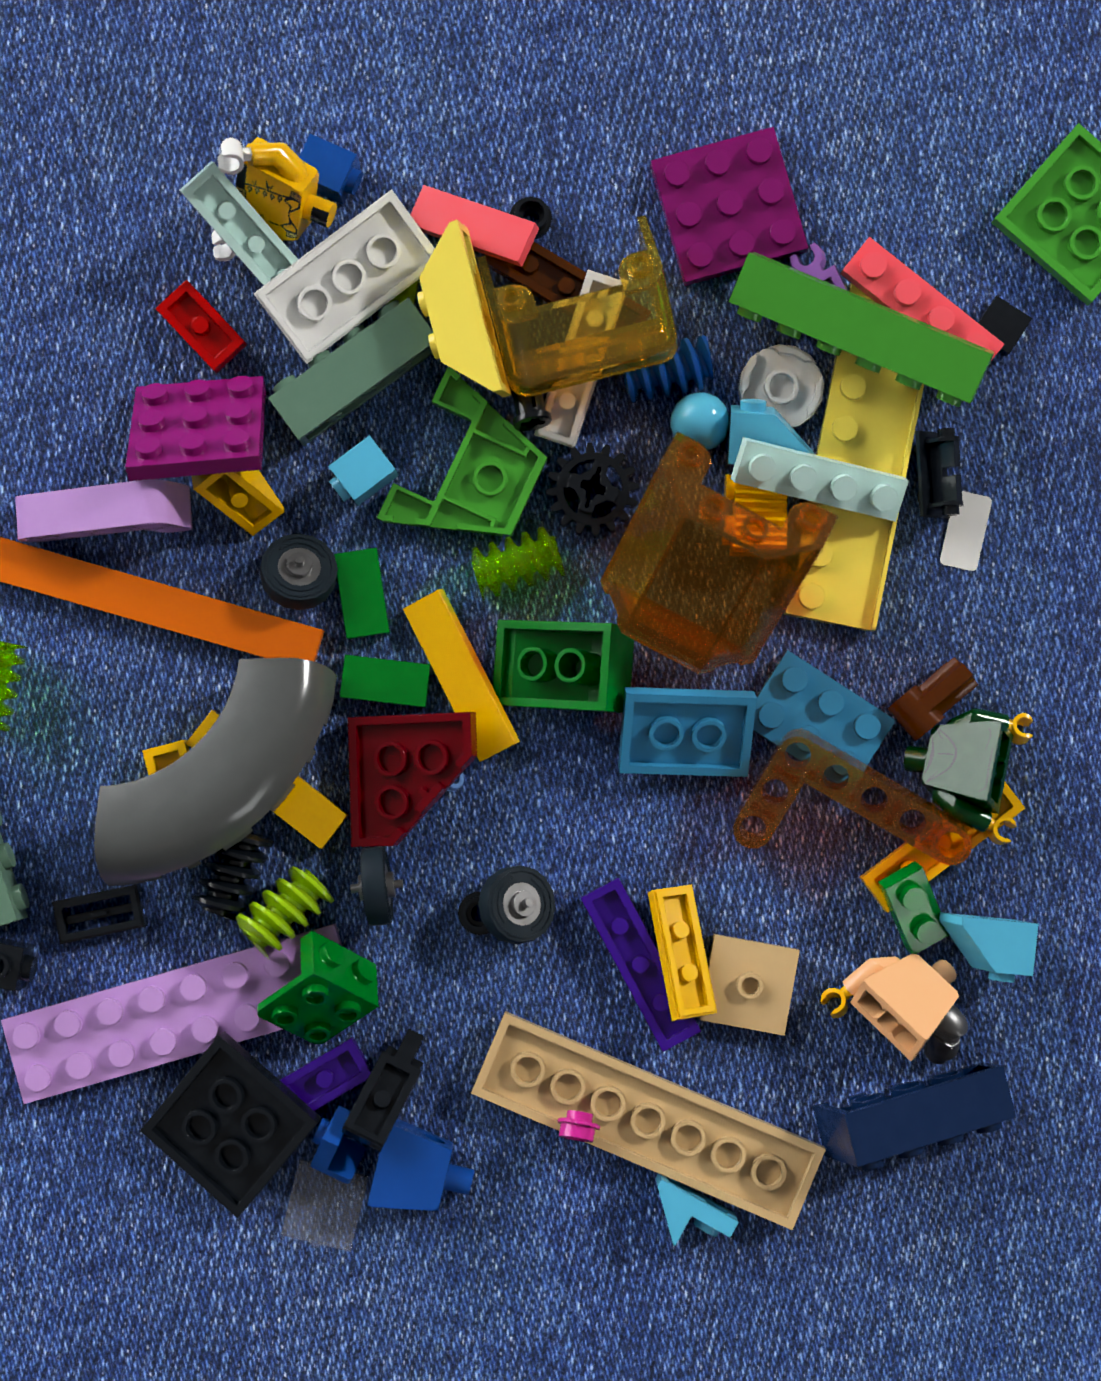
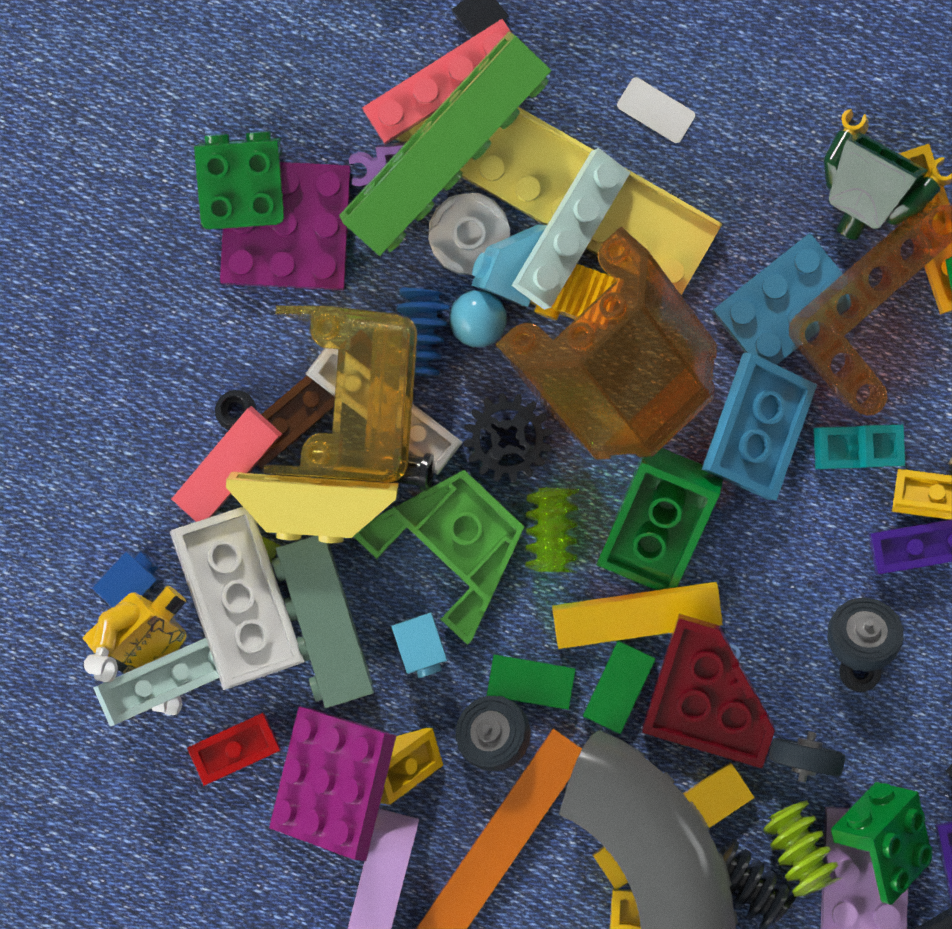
camera: 70 degrees left, 0 degrees up
(700, 839) = (859, 447): none -> teal slope
(756, 143) = (239, 181): none -> green bracket
(925, 705) = (804, 200): reddish brown piece -> none
(938, 493) = (580, 116): black hinge -> none

